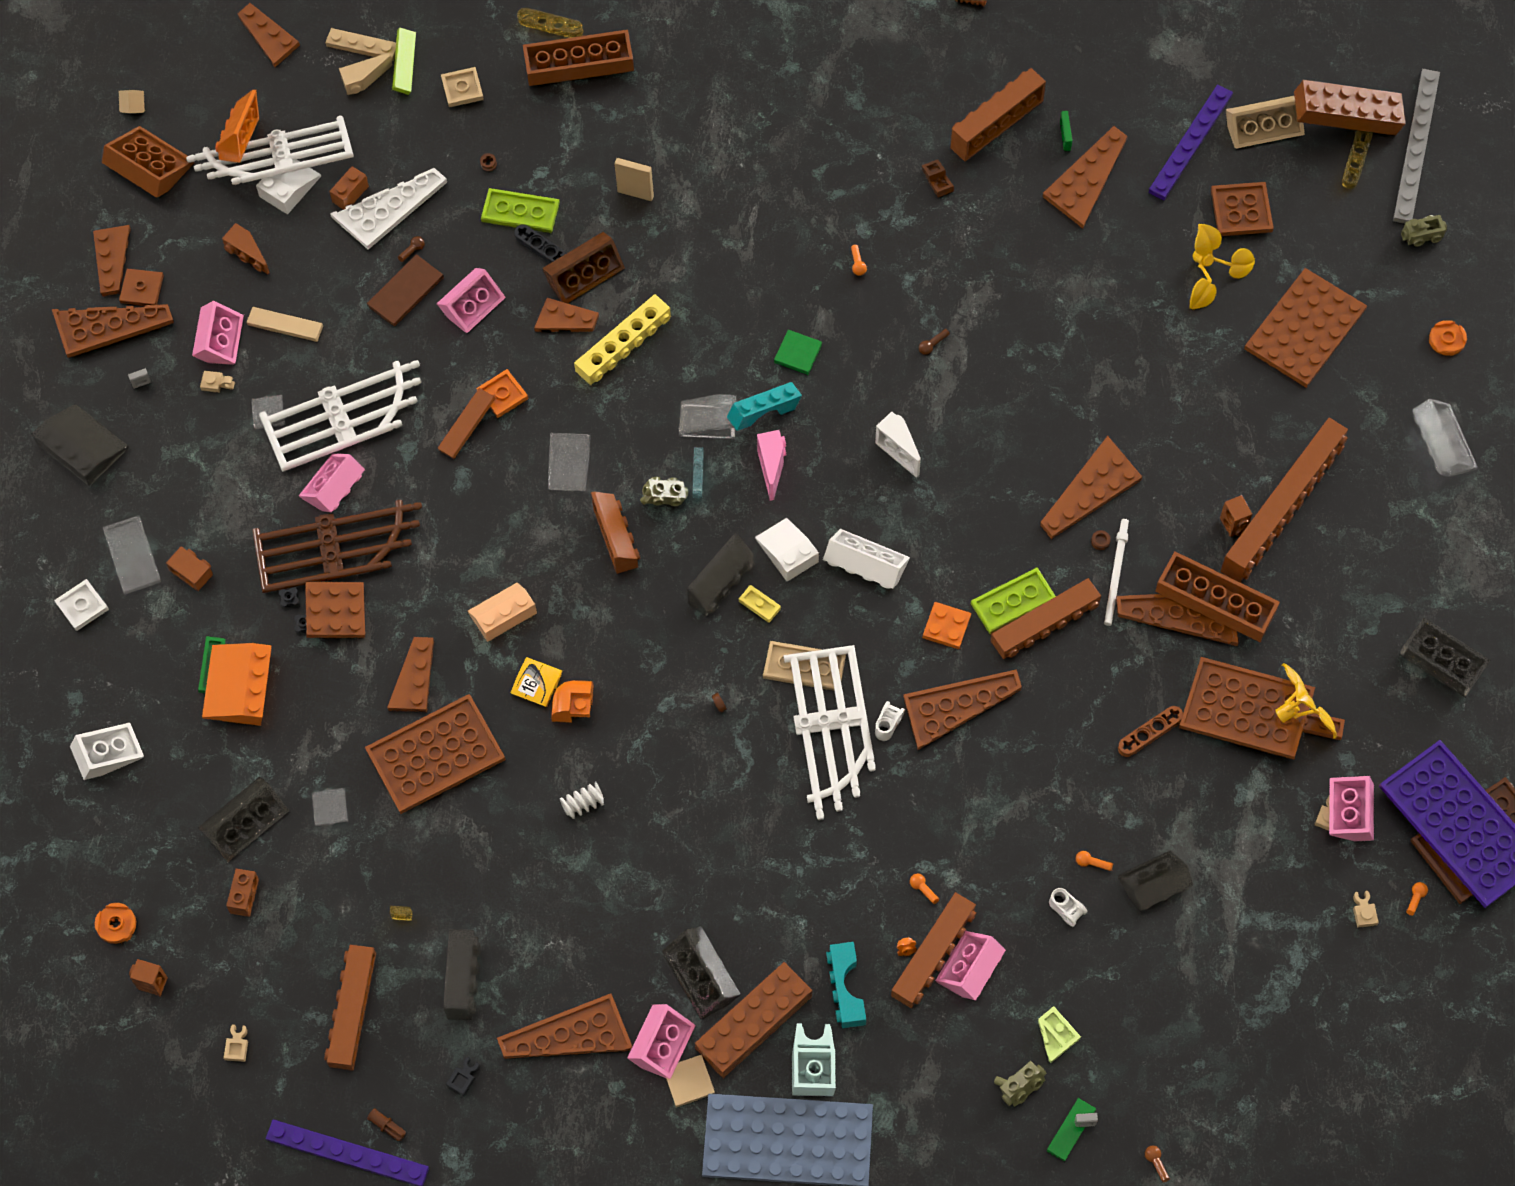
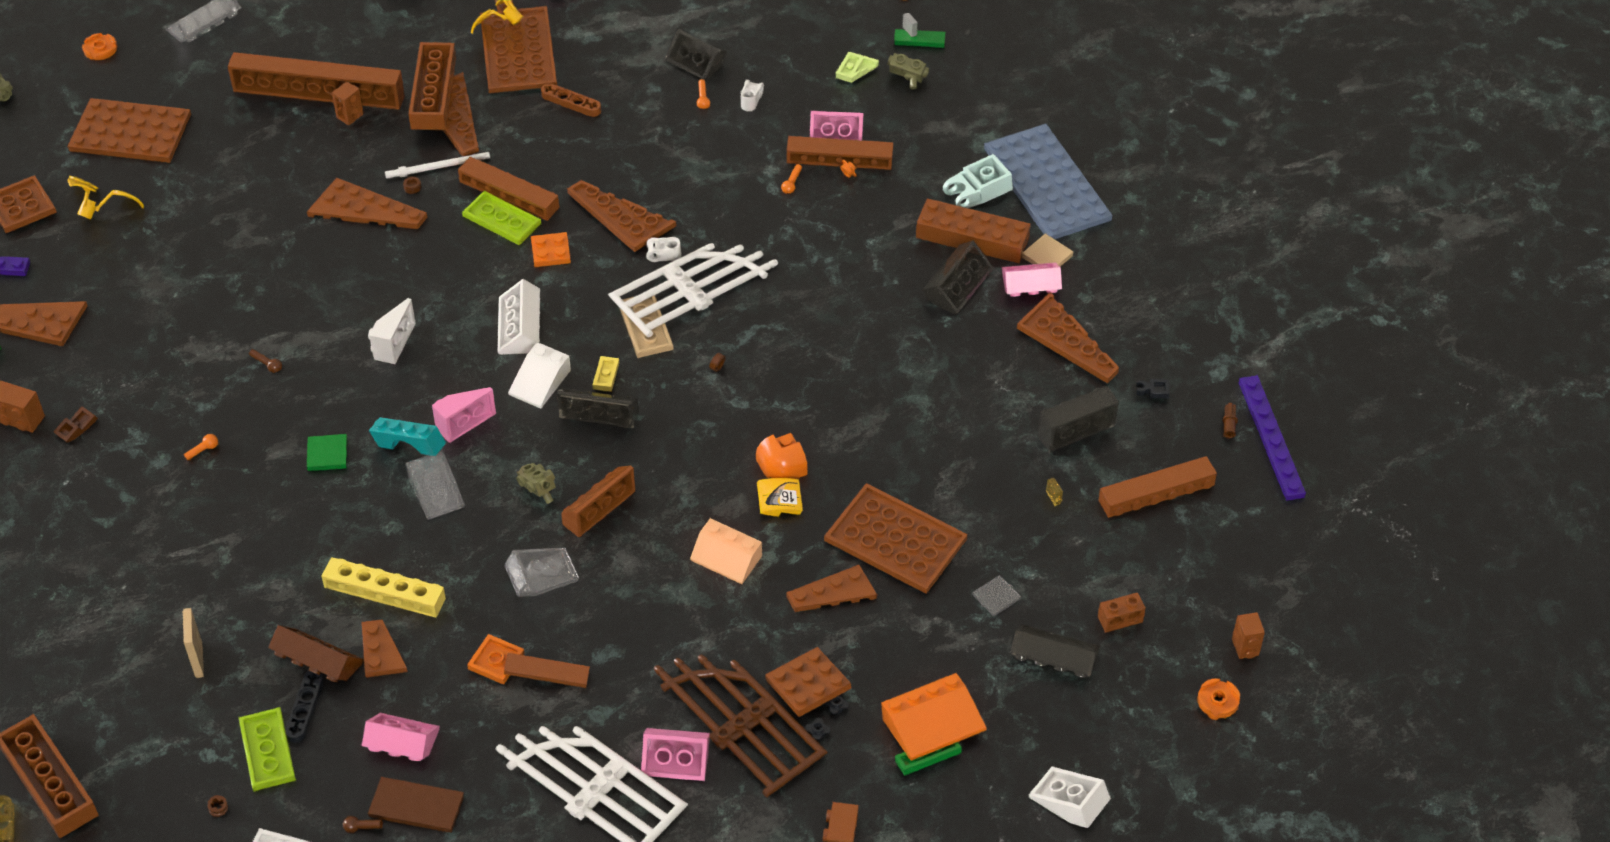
camera: 120 degrees left, 15 degrees down
(237, 1047) = (1250, 550): tan plate -> none
(582, 801) = (868, 412): white piece -> none
(698, 465) = (488, 473): clear light blue beam -> none
(851, 1009) = (886, 199): teal arch -> none

